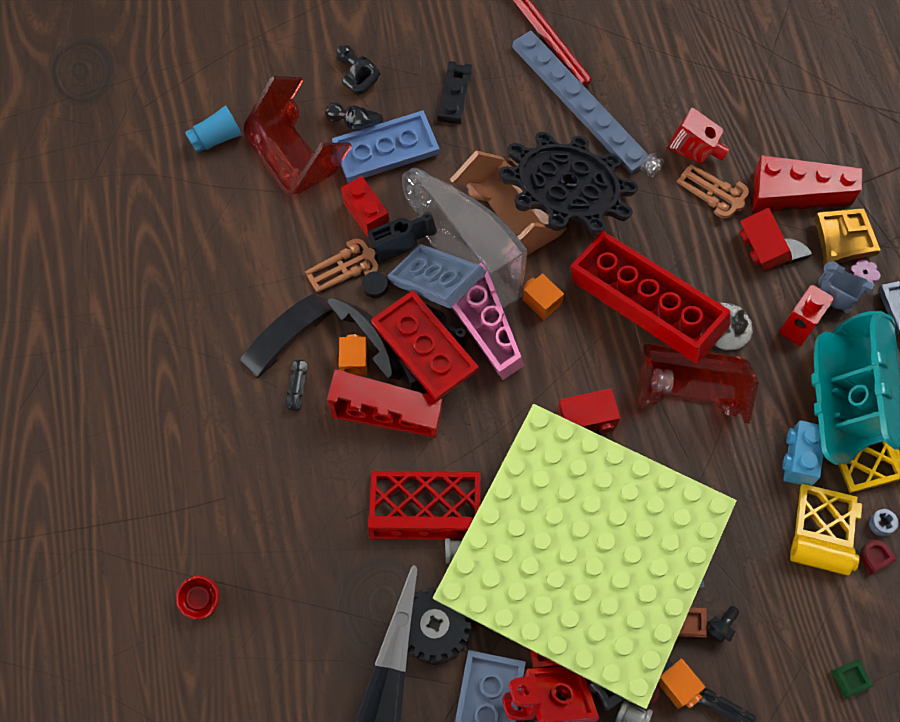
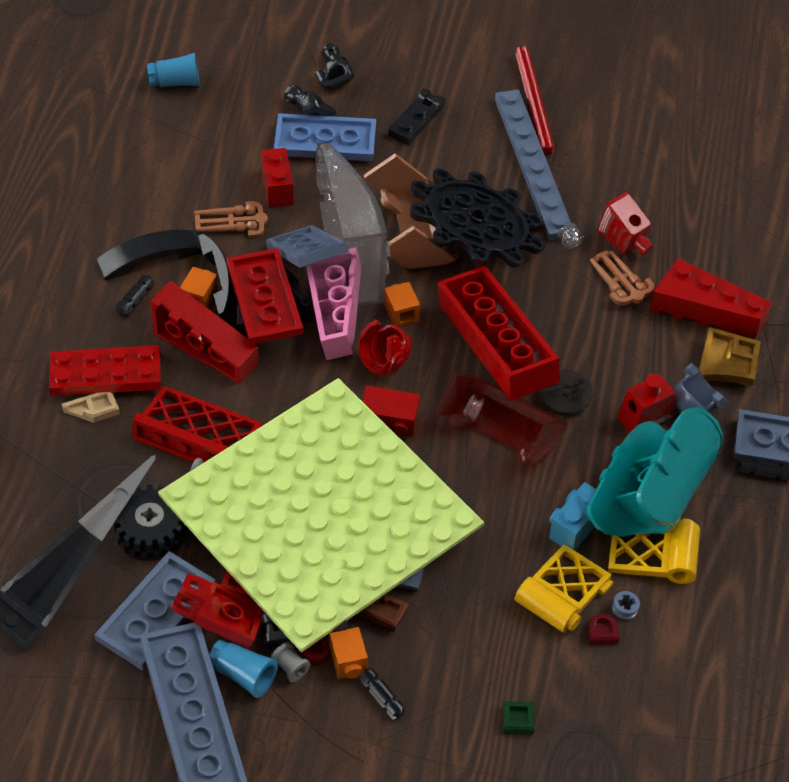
camera: 20 degrees right, 15 degrees down
(279, 144) = (228, 100): clear red windscreen -> none
(309, 478) = (105, 370): none -> red plate
(317, 520) = (93, 407): none -> tan tile
(374, 284) = (251, 242): black tile -> none
(400, 235) = (296, 209): black piece -> none
(554, 352) = (384, 349): none -> red helmet
(721, 628) = (413, 625): black plate -> none
(765, 239) = (643, 332): red brick -> none
(798, 251) = (670, 354): tile -> none
(866, 270) = (734, 396): plant -> none

